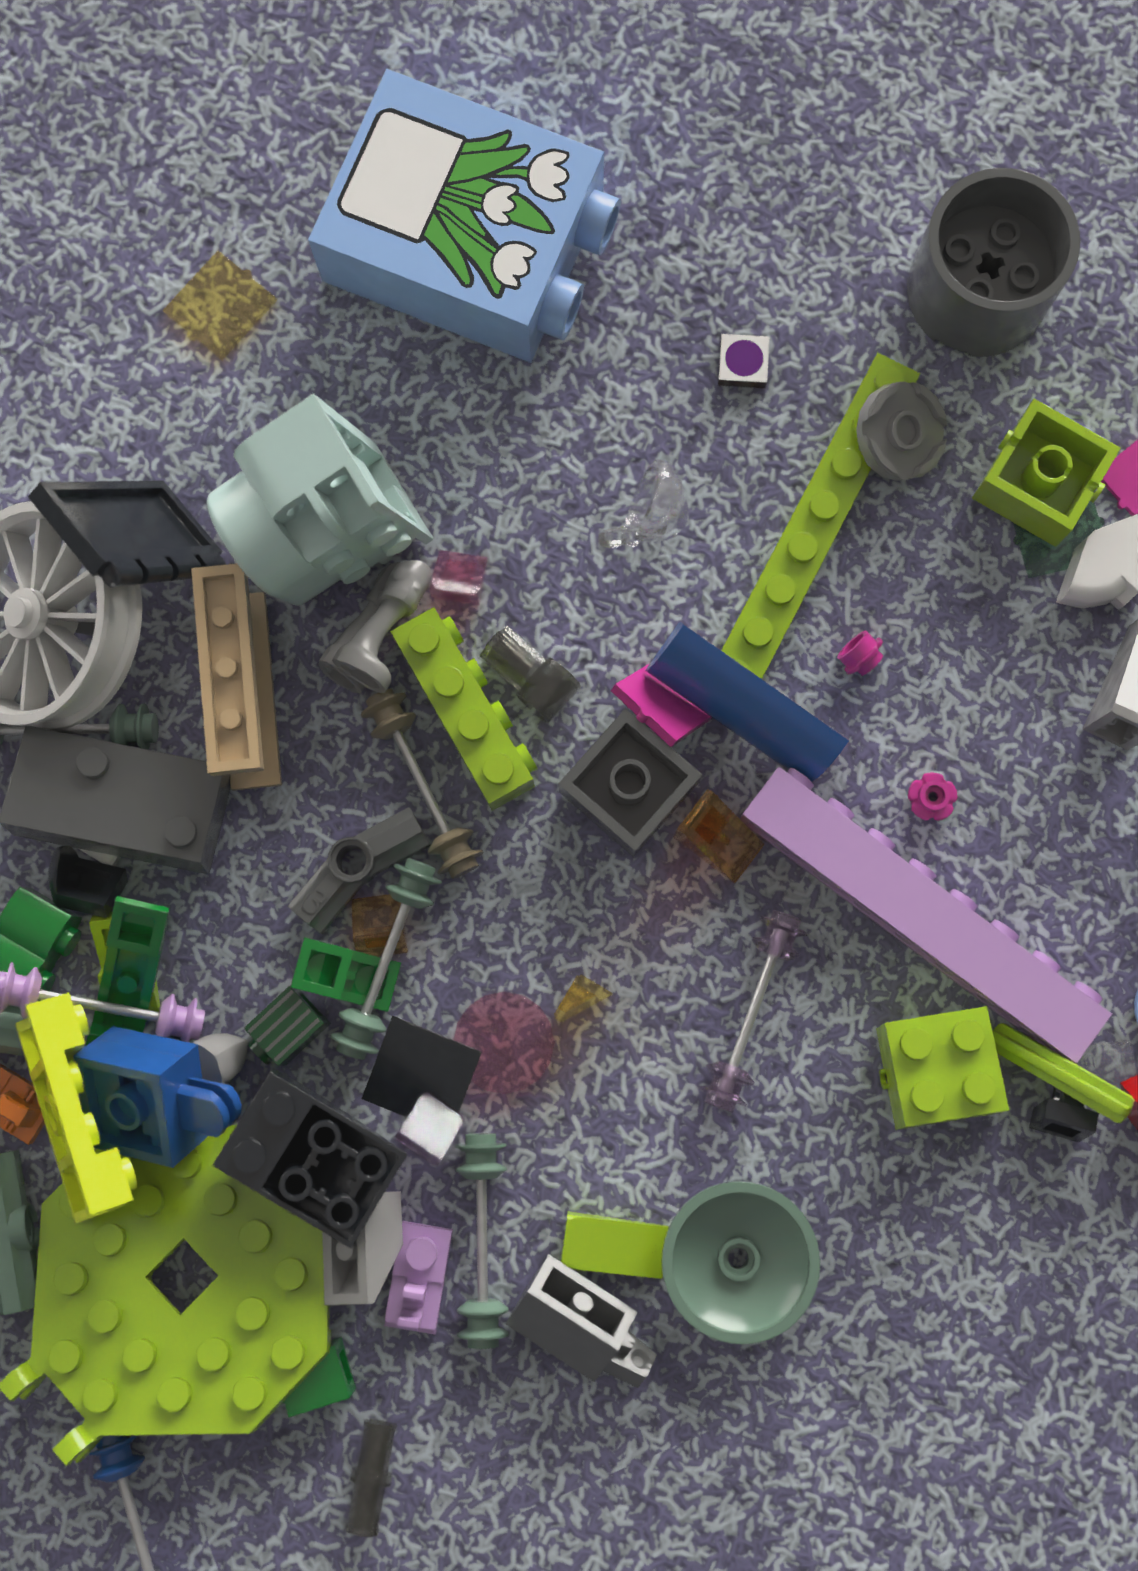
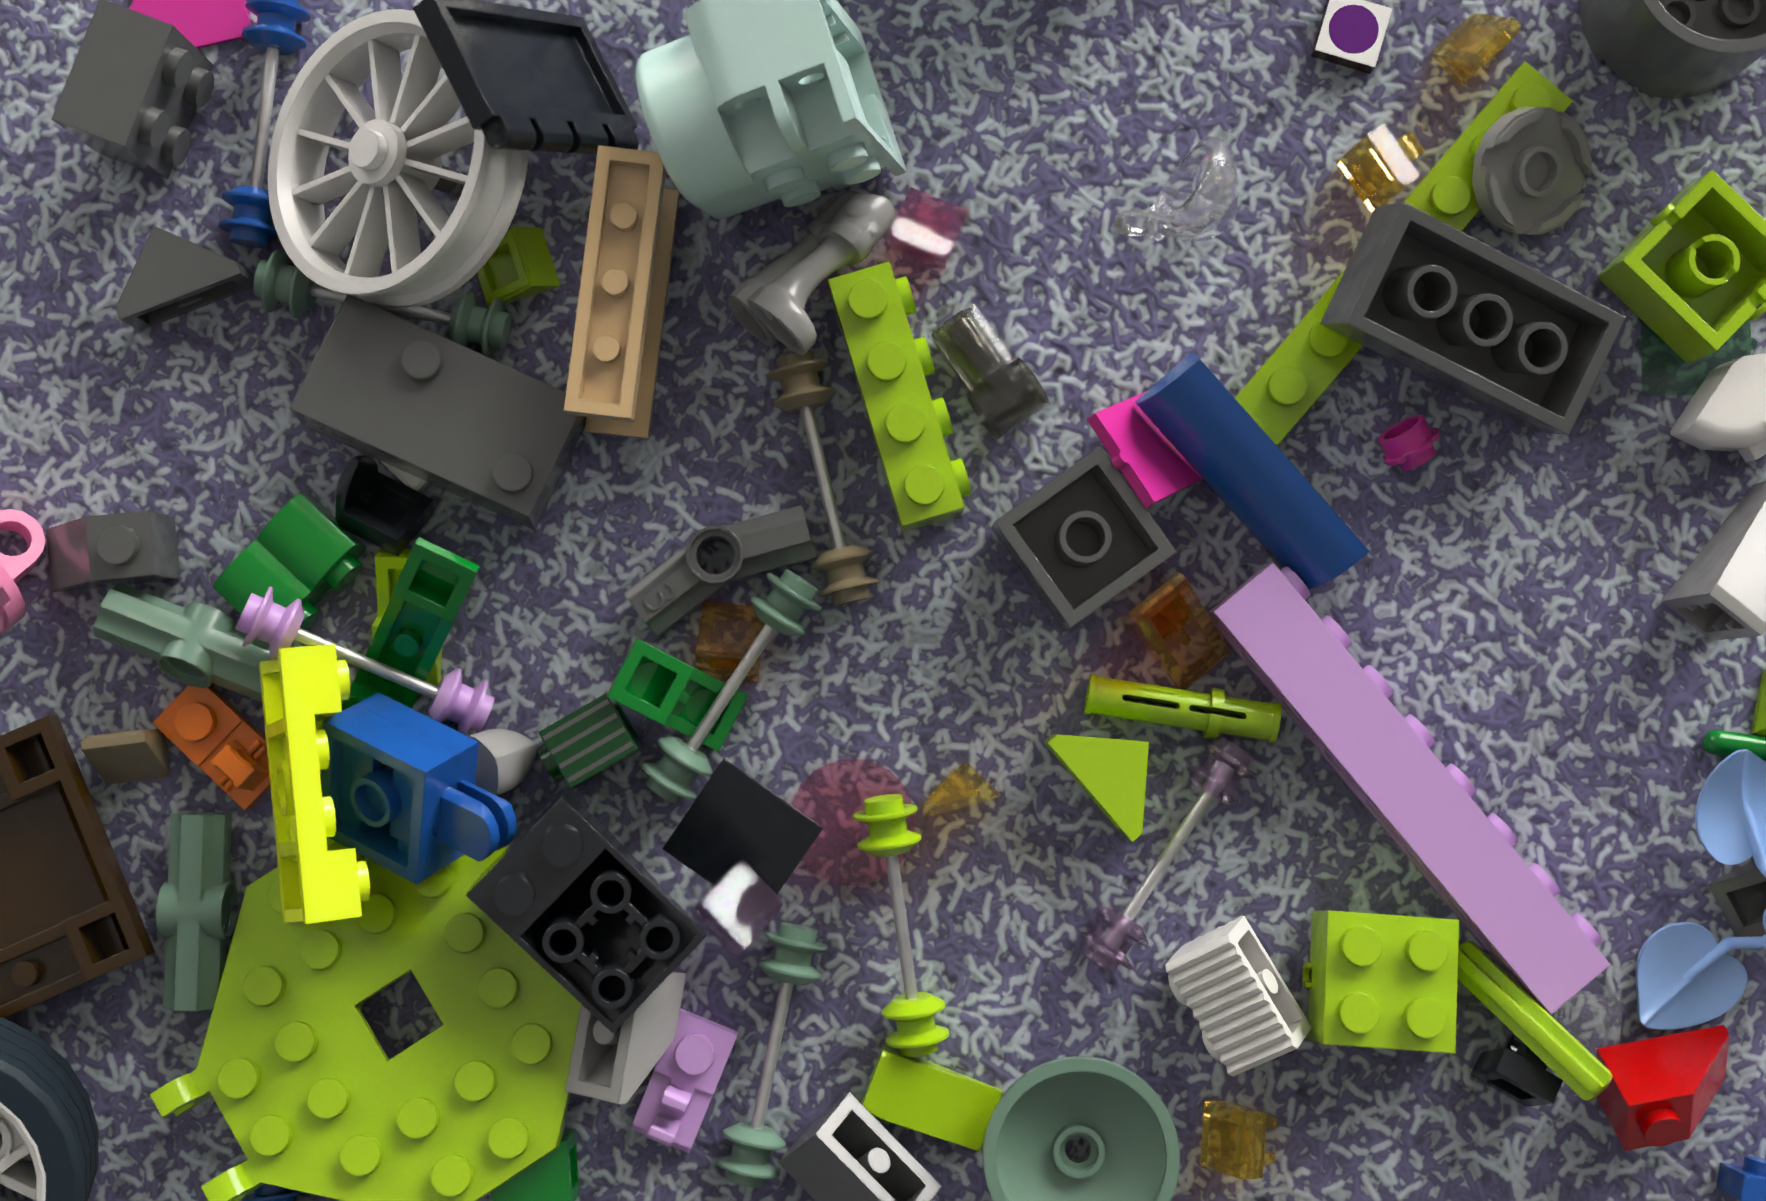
camera: 10 degrees right, 5 degrees up
(153, 677) = (518, 267): none -> lime slope
(584, 1179) = (914, 1010): none -> lime axle
(693, 957) = (1110, 773): none -> lime slope
(789, 453) = (1381, 166): none -> clear yellow tile
(797, 891) = (1257, 719): none -> lime pin
(832, 1108) = (1237, 997): none -> white brick
(837, 349) = (1474, 45): none -> clear yellow slope
(858, 1220) = (1235, 1139): none -> clear yellow tile
(884, 549) = (1472, 319): none -> dark grey brick
(927, 809) = (1437, 647): dark pink plate -> none

